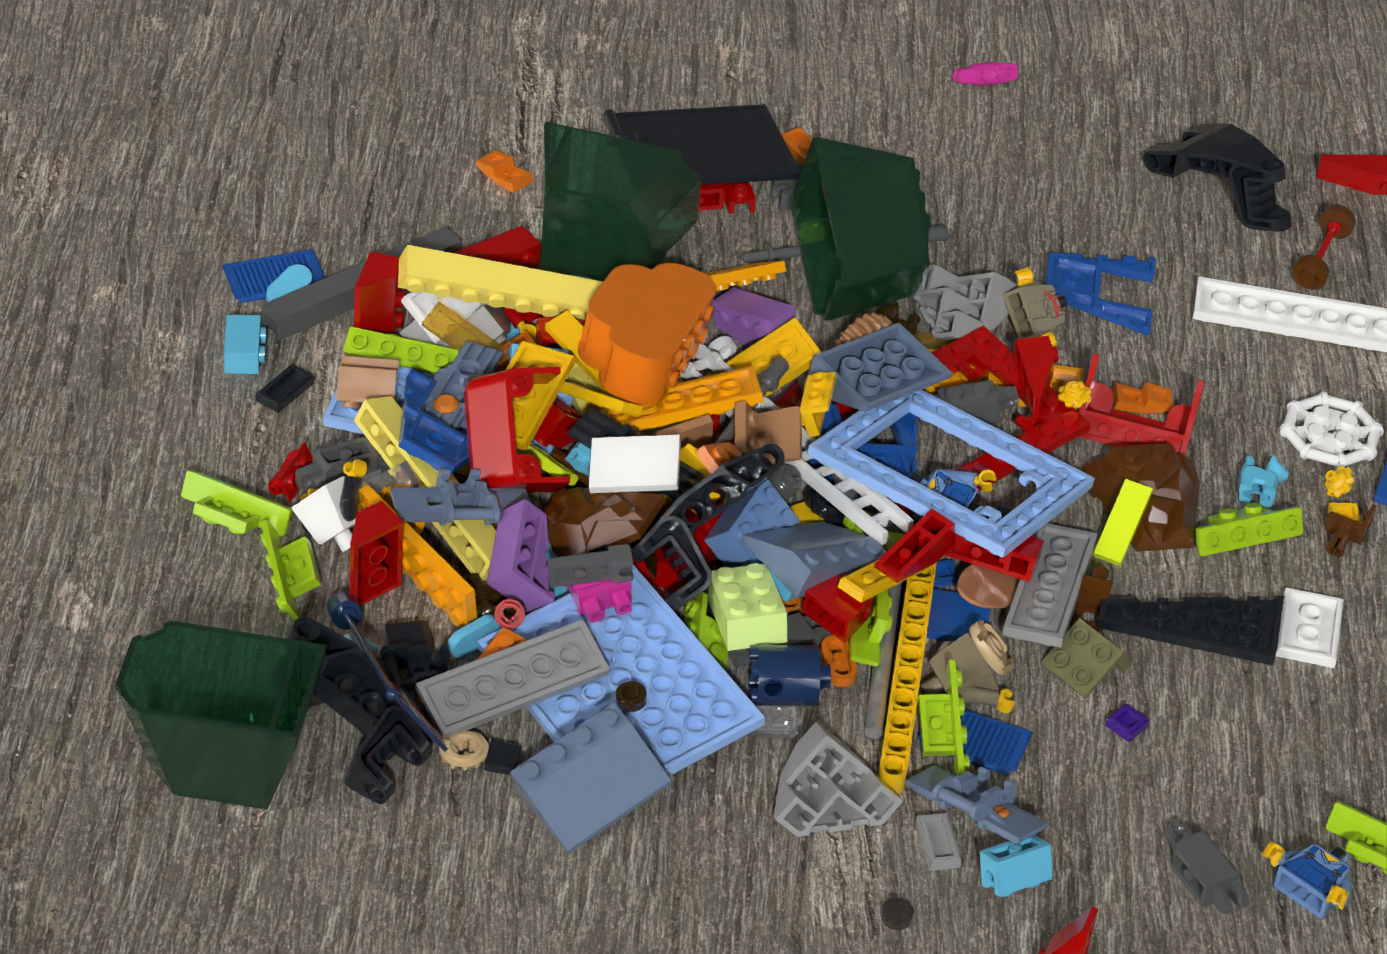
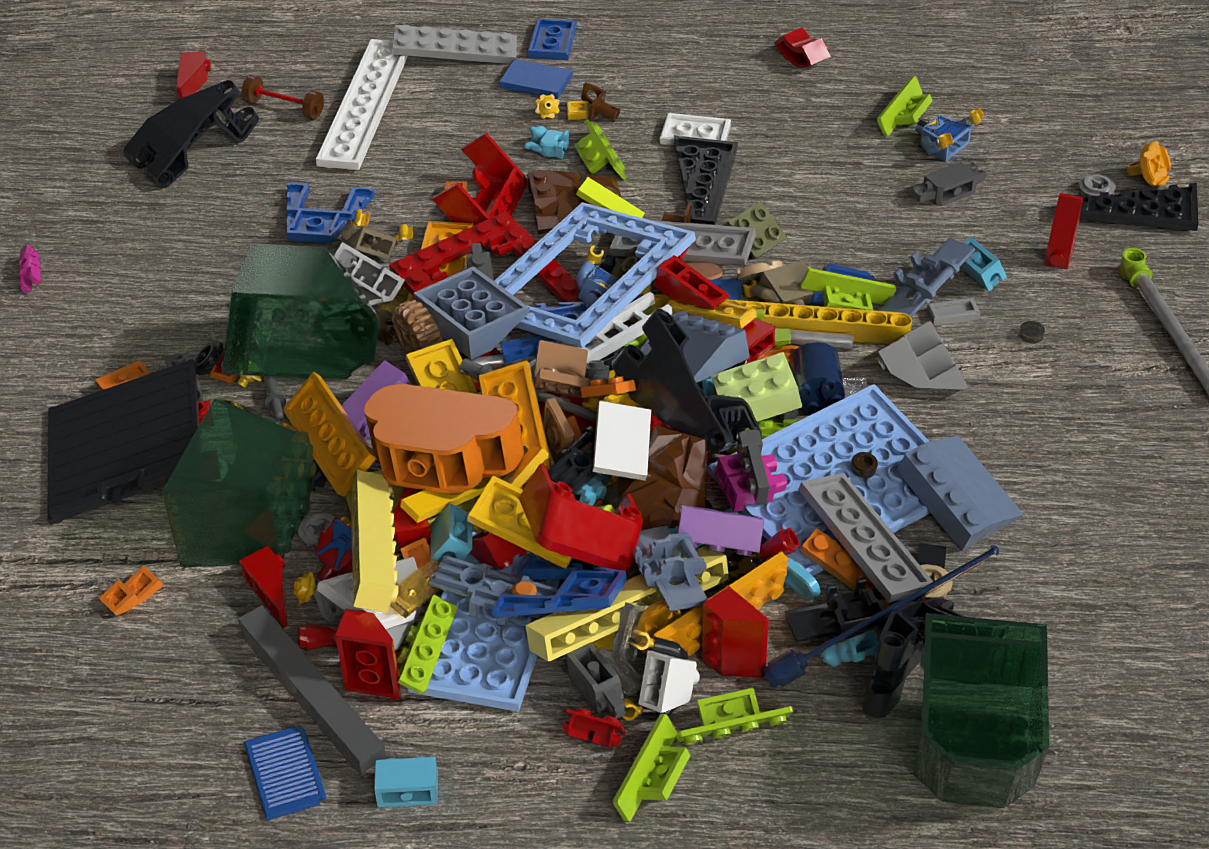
camera: 85 degrees left, 0 degrees up
(285, 388) = (464, 747): black tile -> none
(290, 280) = (312, 751): medium azure tile -> none
(366, 379) = (479, 660): medium nougat piece -> none
(817, 401) = (521, 334): yellow bracket -> none
(1035, 366) = (465, 226): red slope -> none
(1074, 394) = (482, 211): yellow plant -> none
(1127, 722) = (809, 217): dark purple tile -> none
(1326, 446) = (487, 109): white plate -> none

